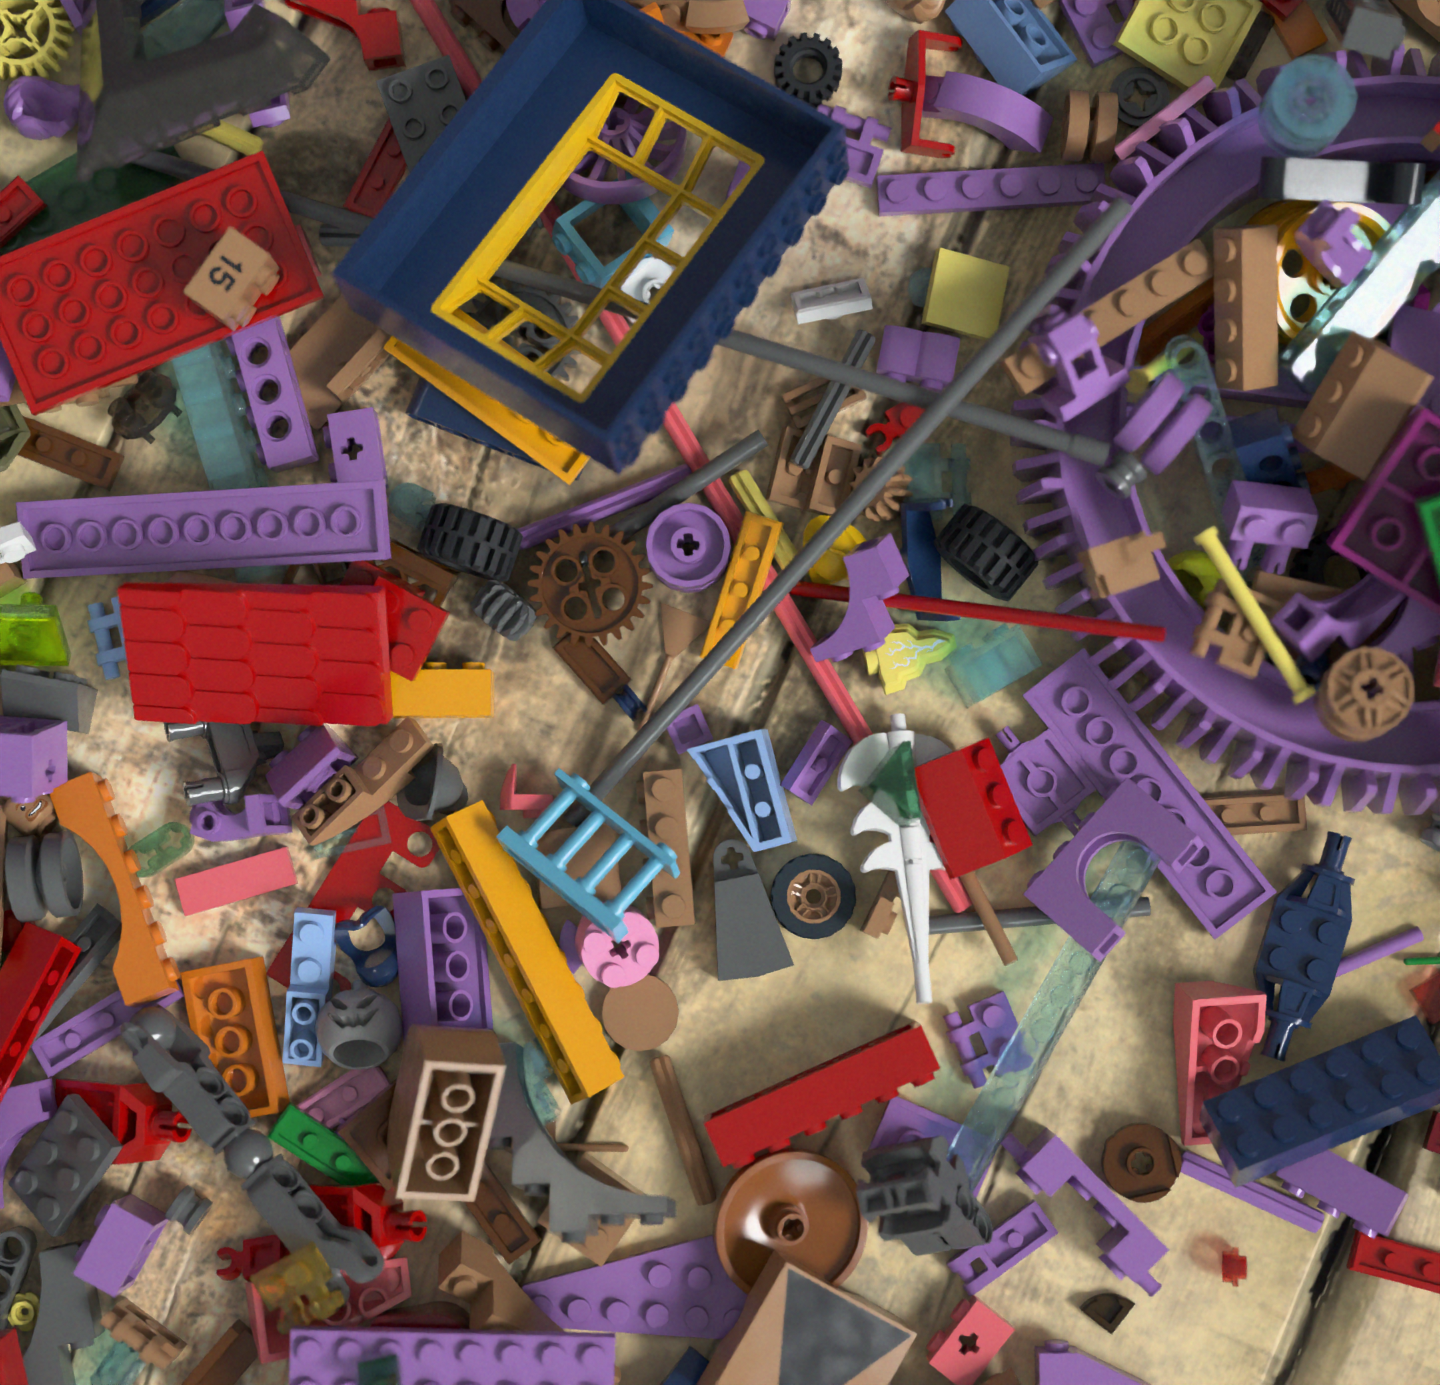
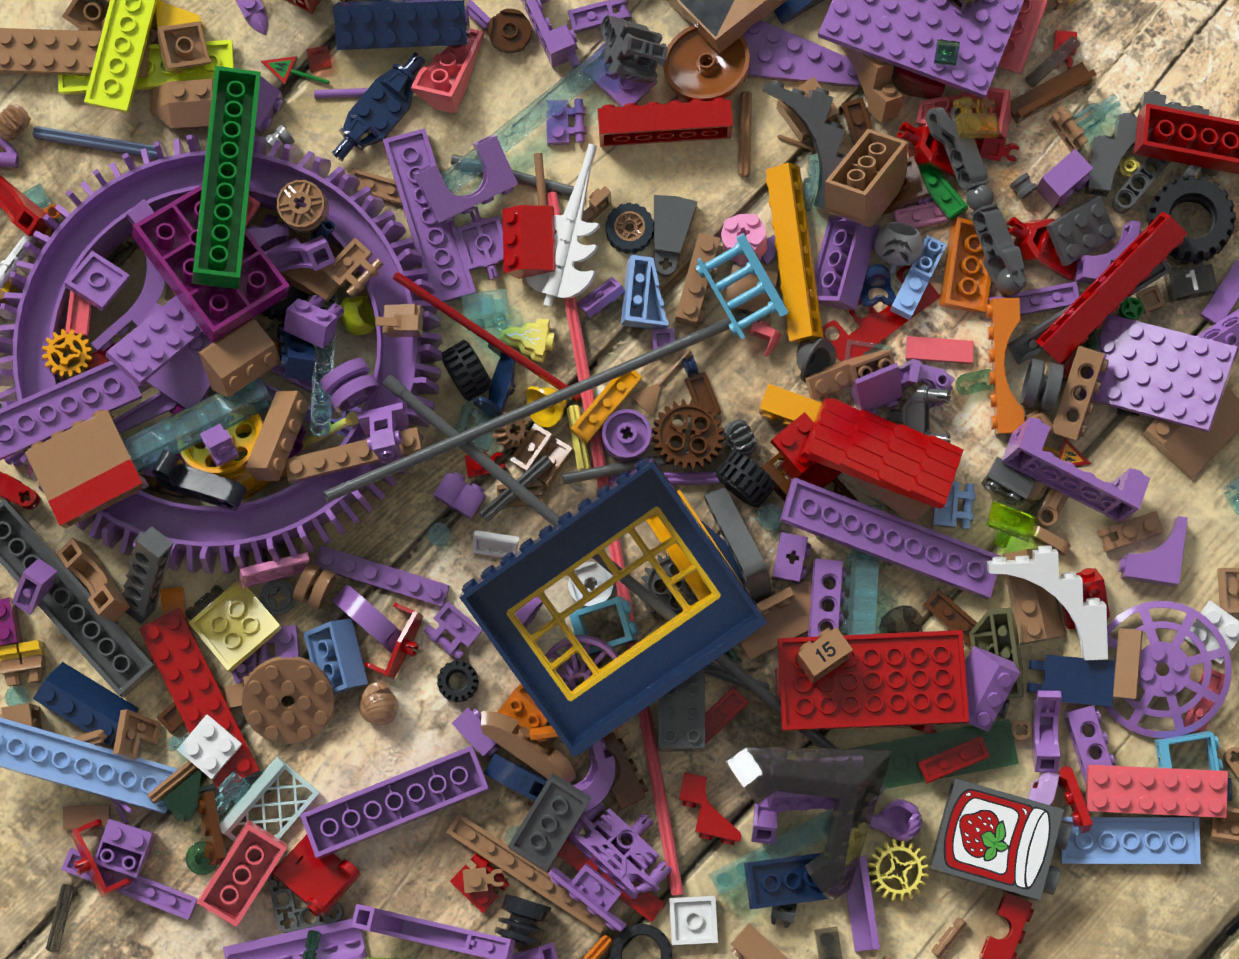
camera: 160 degrees left, 5 degrees down
(446, 440) = (740, 543): none -> dark grey beam
(640, 1014) = (745, 198): medium nougat tile -> none
(874, 574) = (532, 373): medium lavender arch -> none
(894, 786) = (564, 263): clear green slope -> none
(965, 294) = (420, 520): light yellow tile -> none
(1121, 474) = (381, 369): dark grey wheel -> none
(1255, 615) = (342, 269): light yellow bar -> none
(1291, 123) = (215, 528): clear light blue wheel -> none

